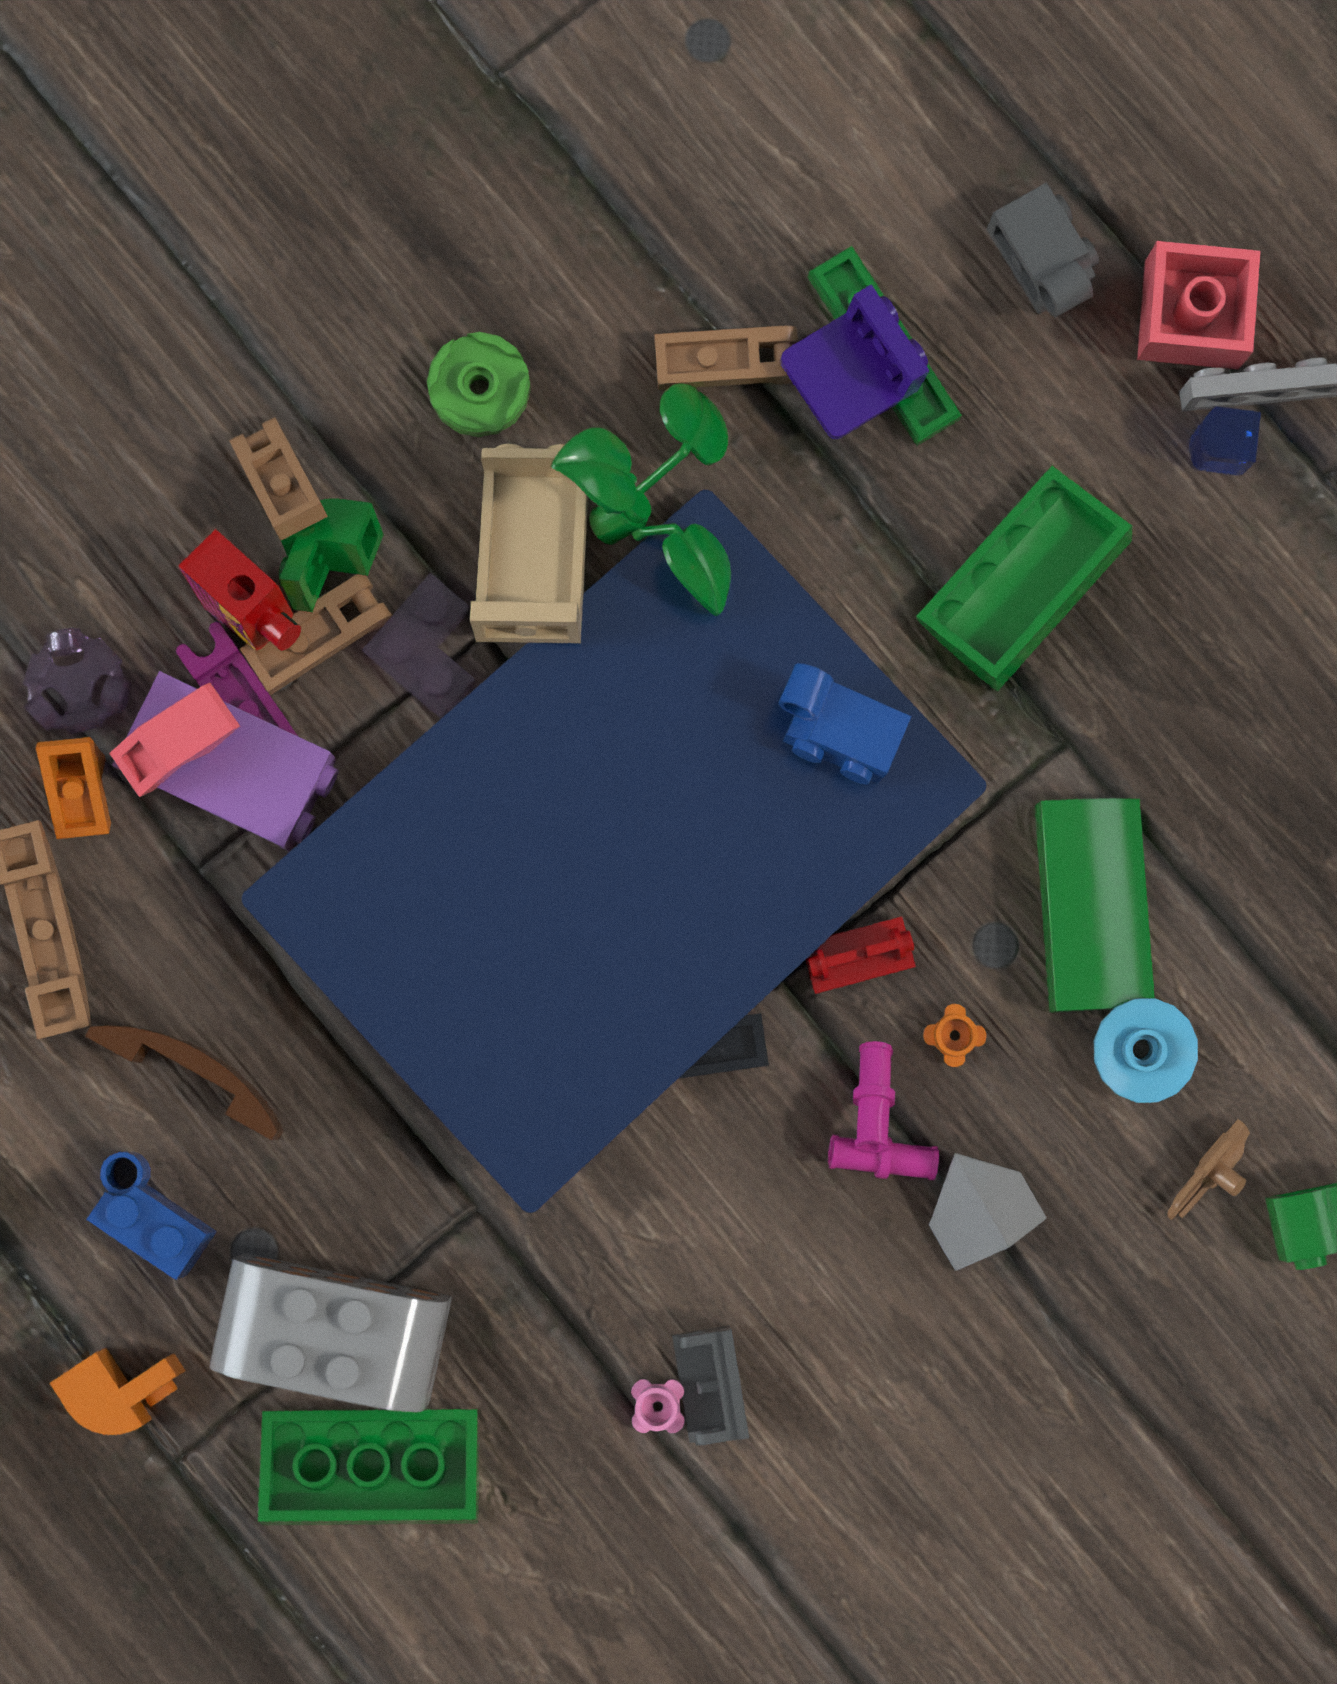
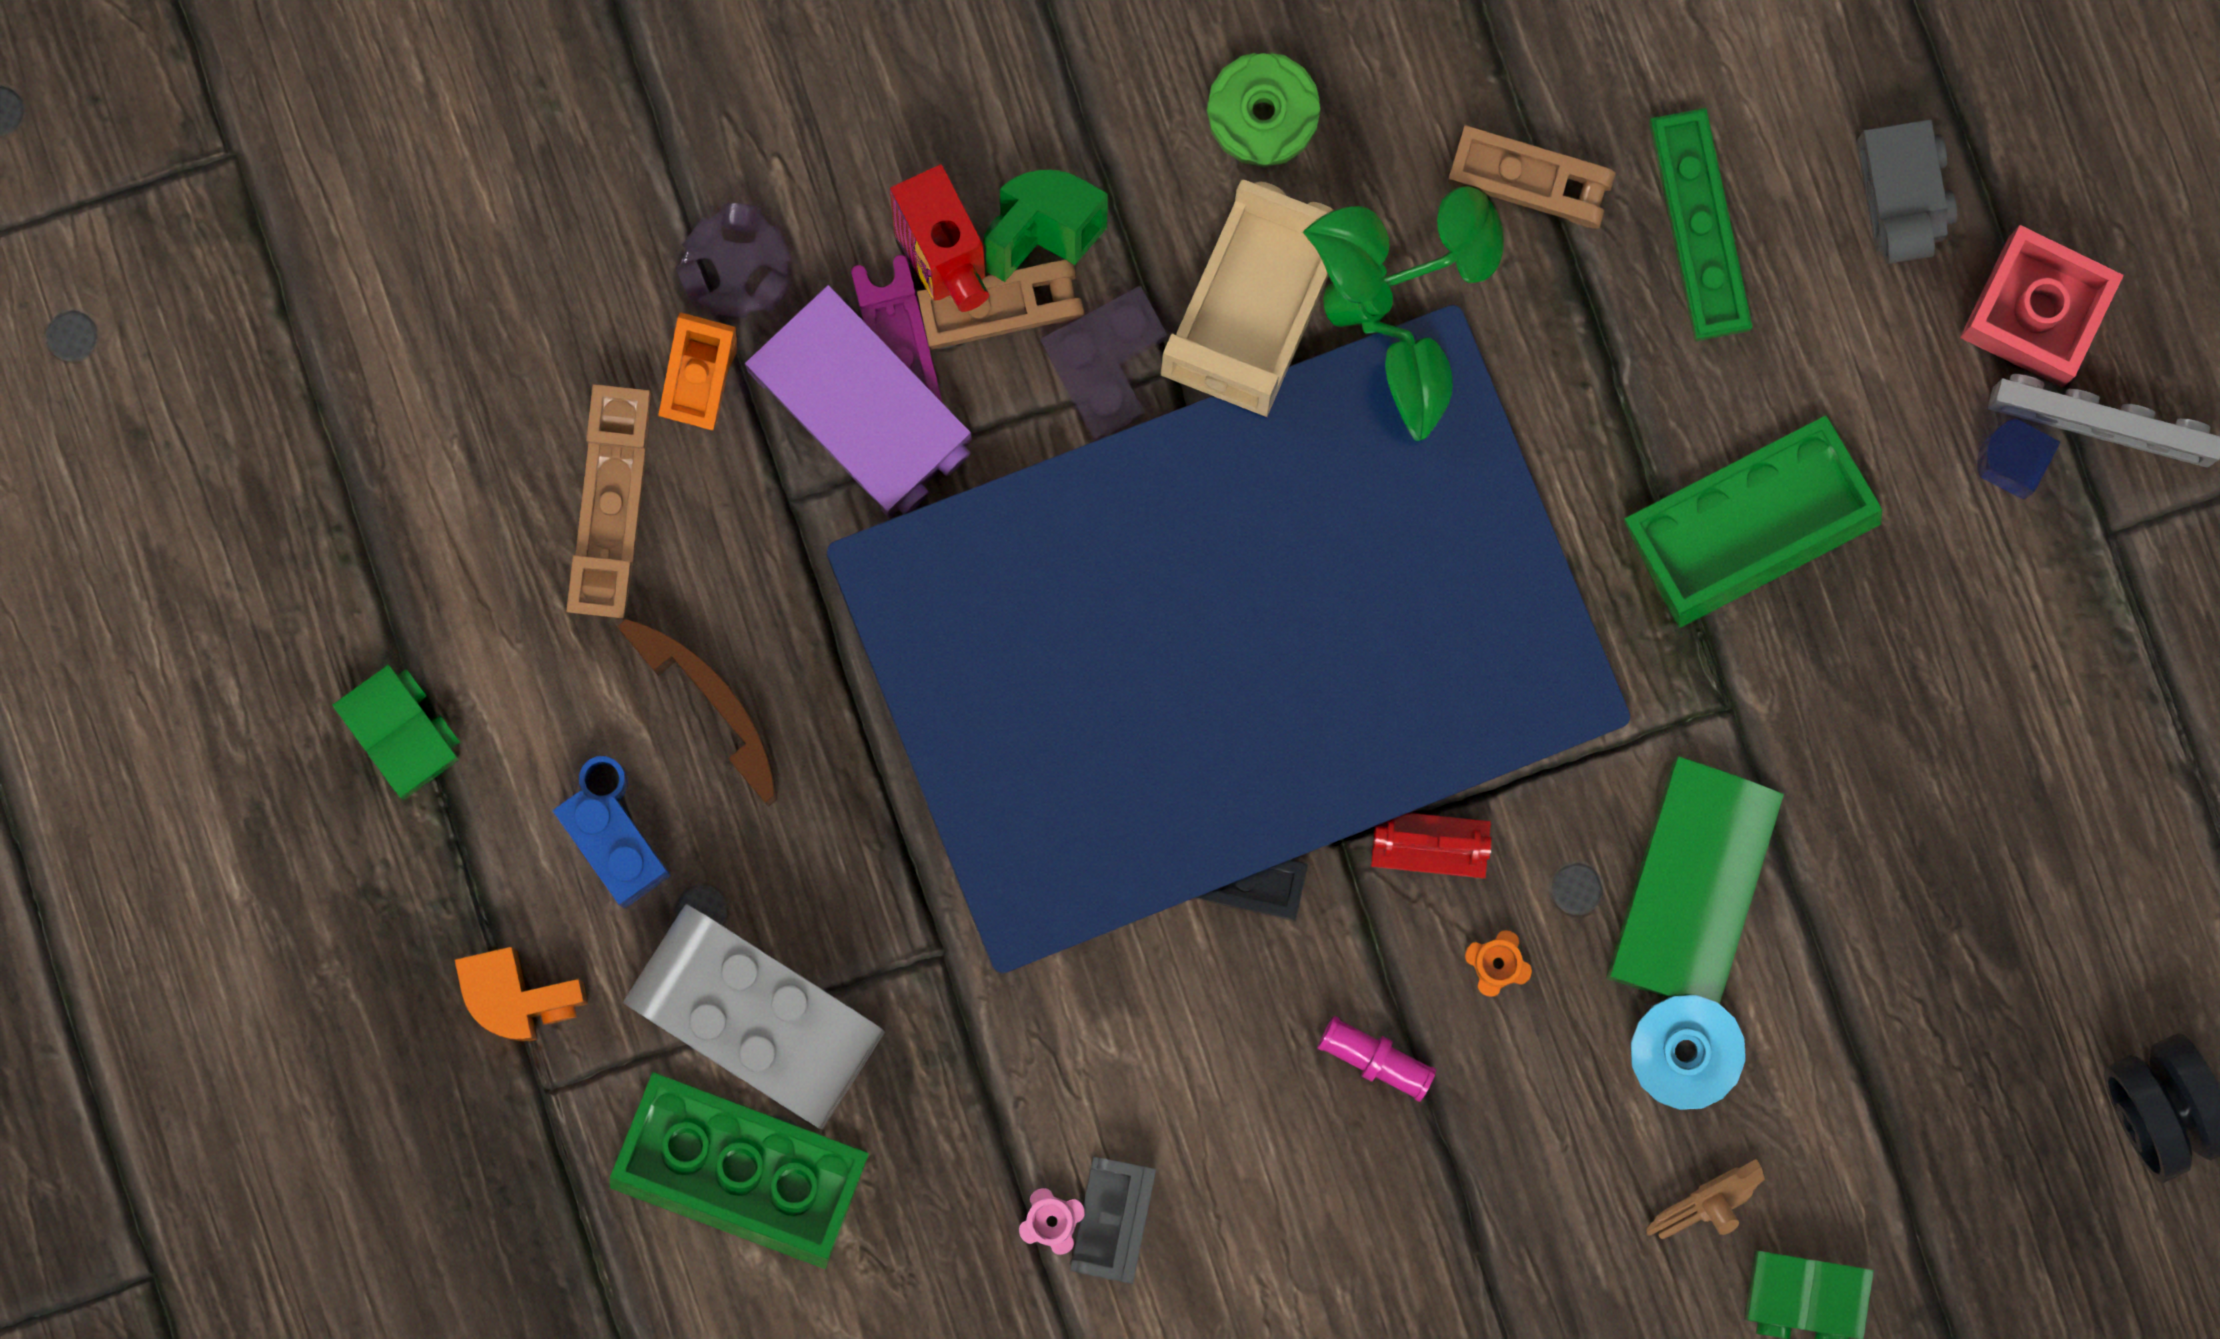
camera: 25 degrees right, 0 degrees up
(174, 738) = (819, 361): coral slope -> none
(278, 479) = (1021, 133): medium nougat plate -> none
(840, 725) = (1500, 601): blue hinge -> none
(856, 365) = (1658, 237): dark purple bracket -> none
(874, 1097) = (1390, 993): dark pink pin -> none
(982, 1211) = (1457, 1149): light grey slope -> none

